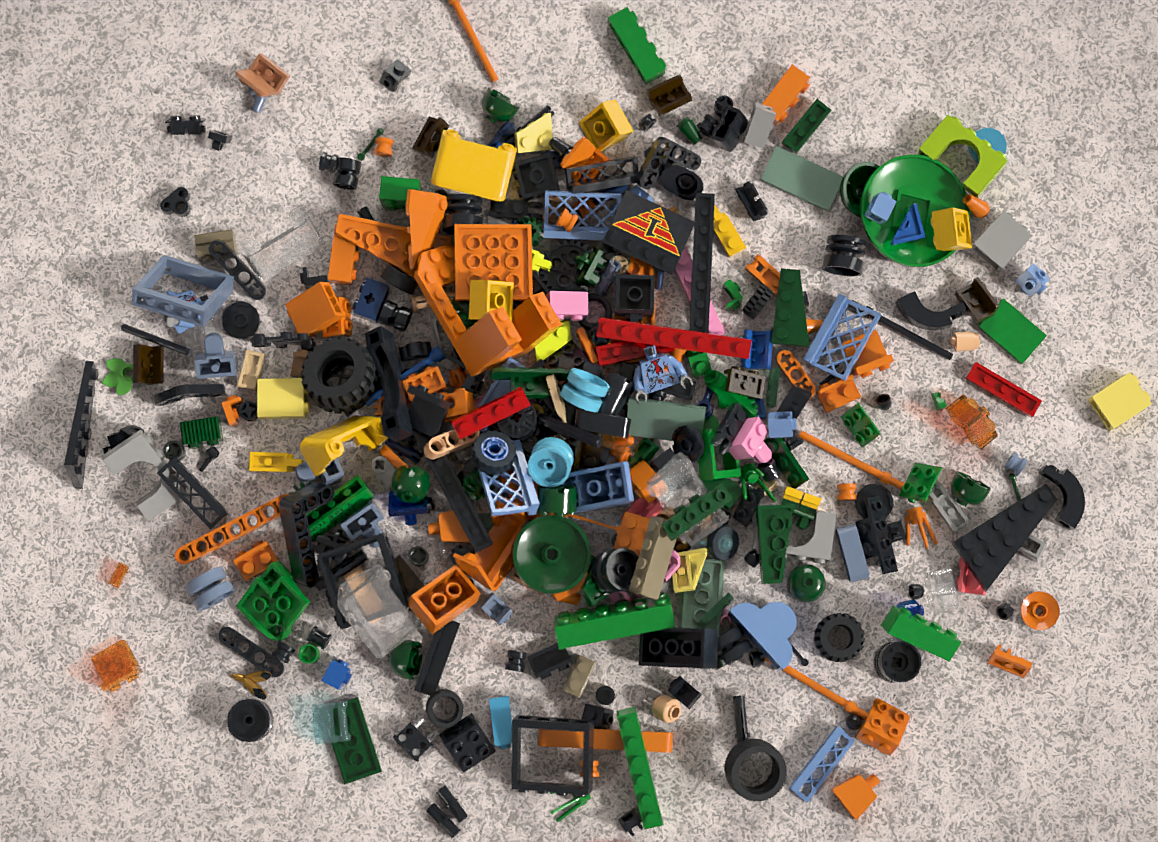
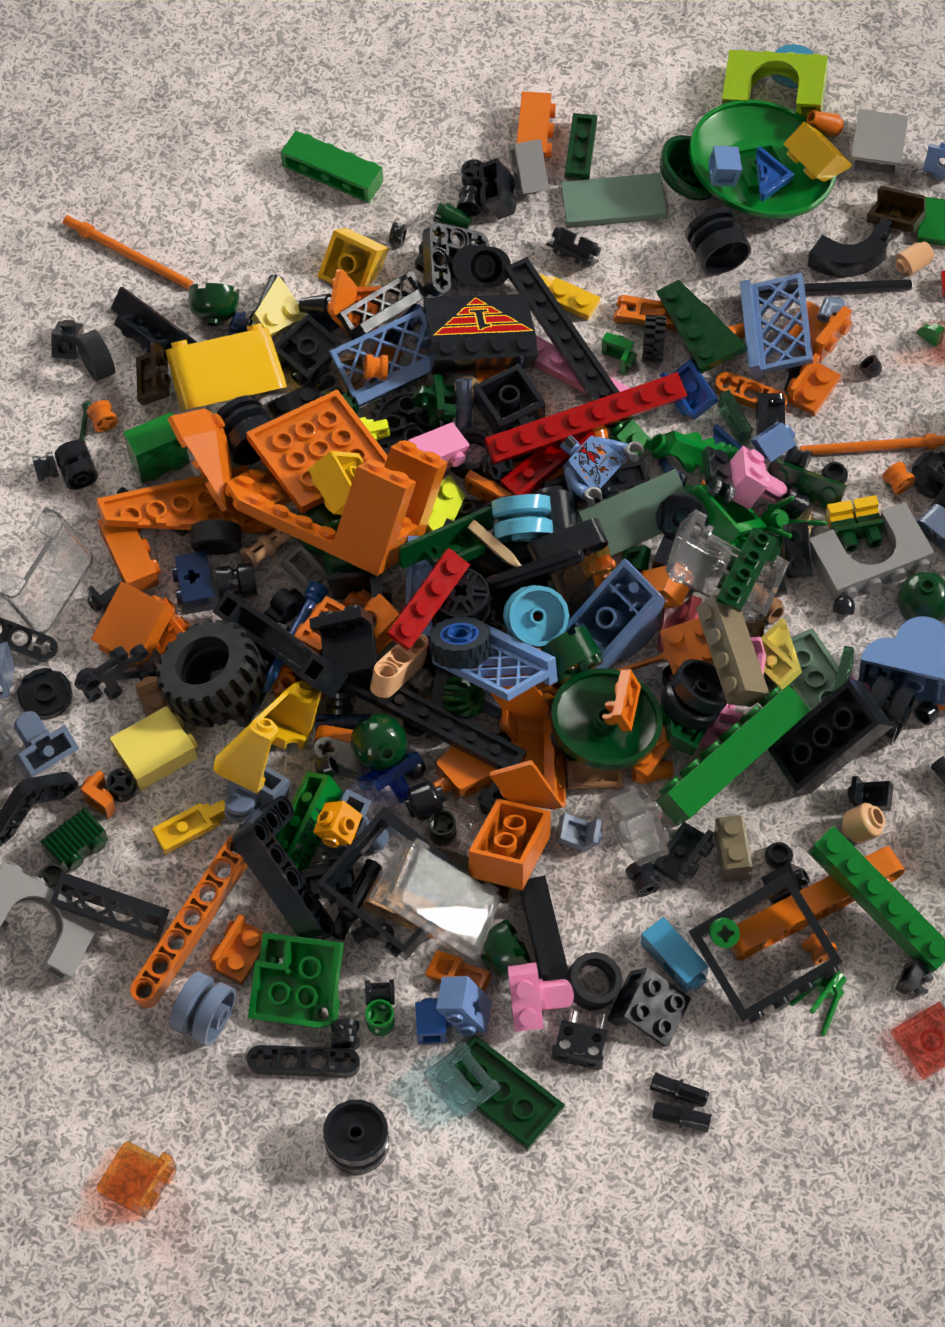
camera: 30 degrees left, 20 degrees down
(118, 574) = (70, 1067): clear orange pin -> none
(213, 453) = (104, 860): black hand -> none
(250, 682) = (323, 1095): pearl gold piece -> none
(251, 370) = (93, 739): tan plate -> none
(349, 526) = (337, 824): none -> light orange brick
(357, 680) = (464, 1005): none -> medium blue brick
(372, 479) = (327, 765): none -> black hinge
(375, 665) = (452, 966): none -> orange slope
(399, 700) = (534, 995): none -> bright pink brick
(402, 102) = (95, 355): none -> black tyre
(416, 534) = (425, 800): none -> black head
(448, 99) = (145, 324): none -> black bracket
(529, 631) = (638, 824): none -> clear brick
(533, 733) = (718, 928): none -> green wheel
(569, 551) = (625, 704): none -> orange plate
(669, 95) = (403, 194): dark brown bracket -> none
(723, 543) = (797, 606): black wheel -> none
(745, 383) = (700, 425): bracket -> none
(773, 535) = (848, 557): dark green wing -> none
(809, 463) = (835, 471): none -> black plate
(860, 425) = (863, 398): green hinge -> none
(886, 343) = (828, 308): none -> sand blue arm

